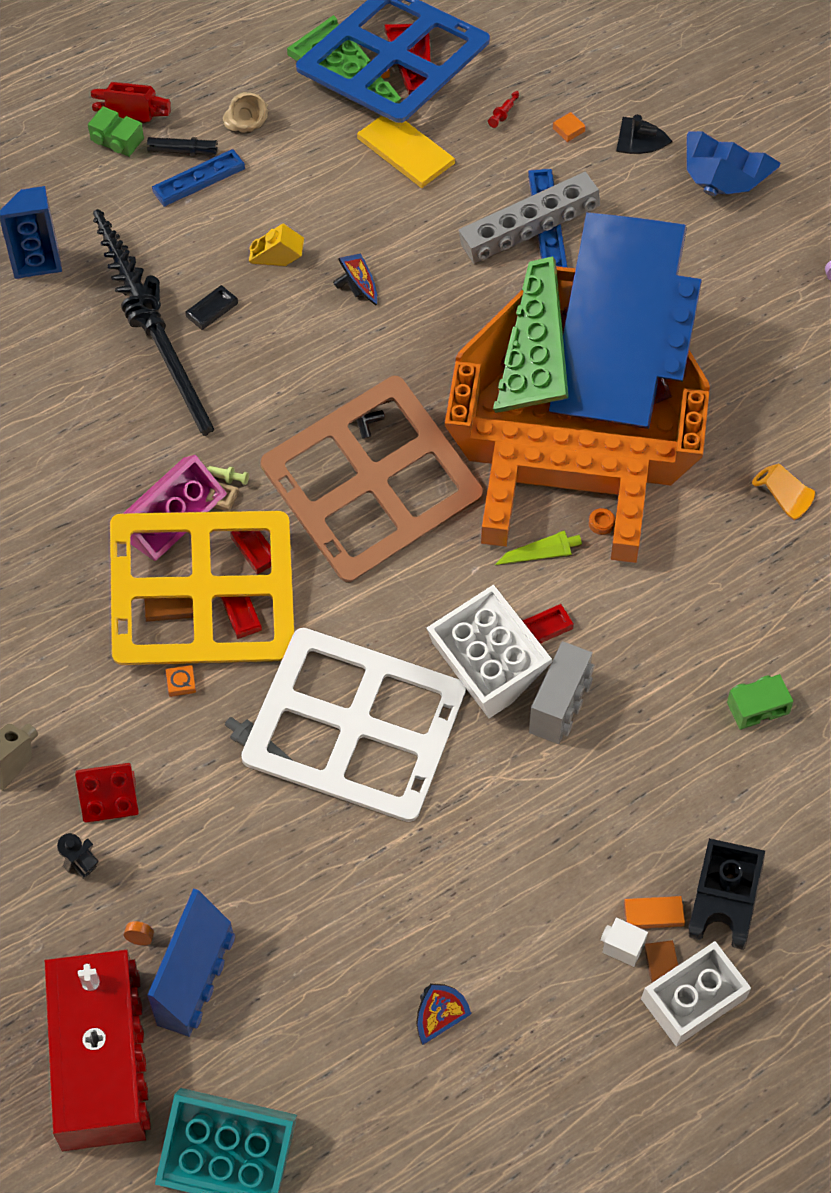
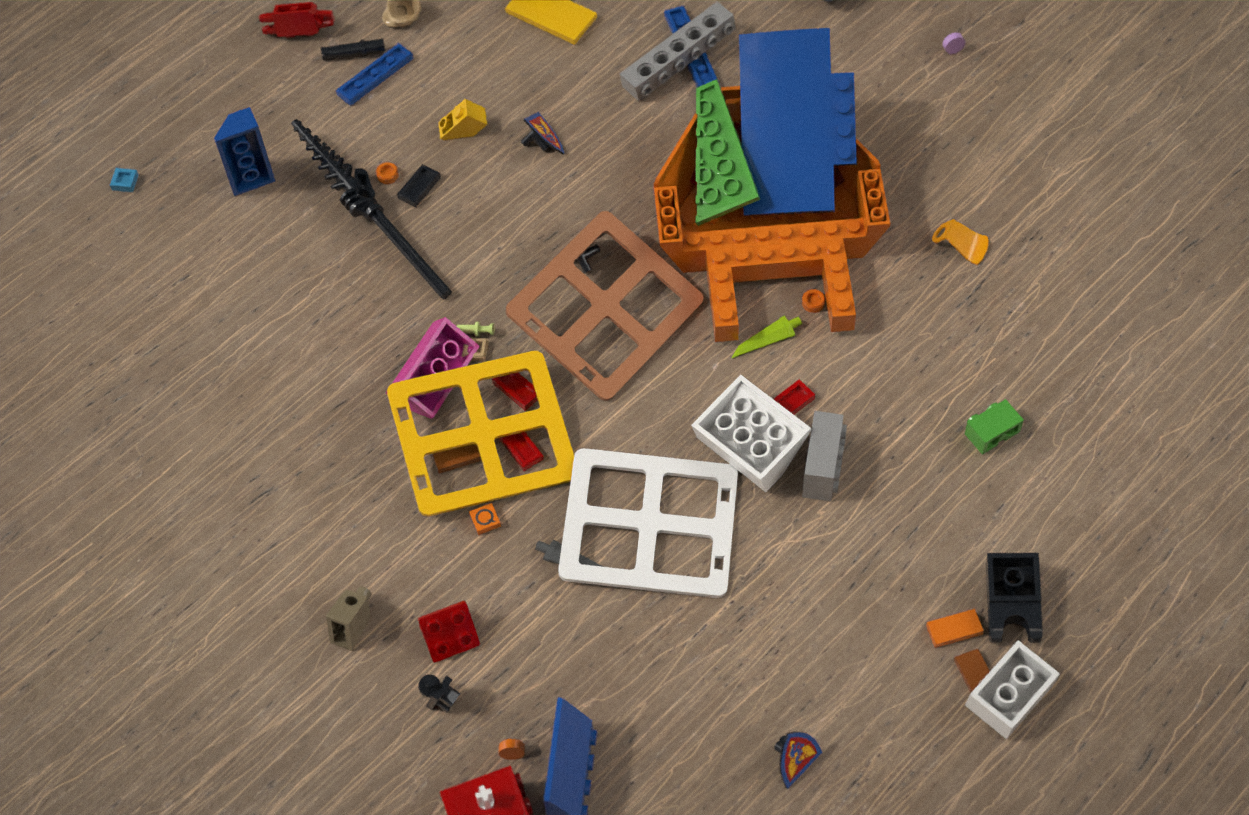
camera: 10 degrees left, 0 degrees up
(115, 132) = (290, 49): bright green brick -> none
(181, 287) = (387, 173): none -> orange tile
(624, 941) = (937, 659): white brick -> none

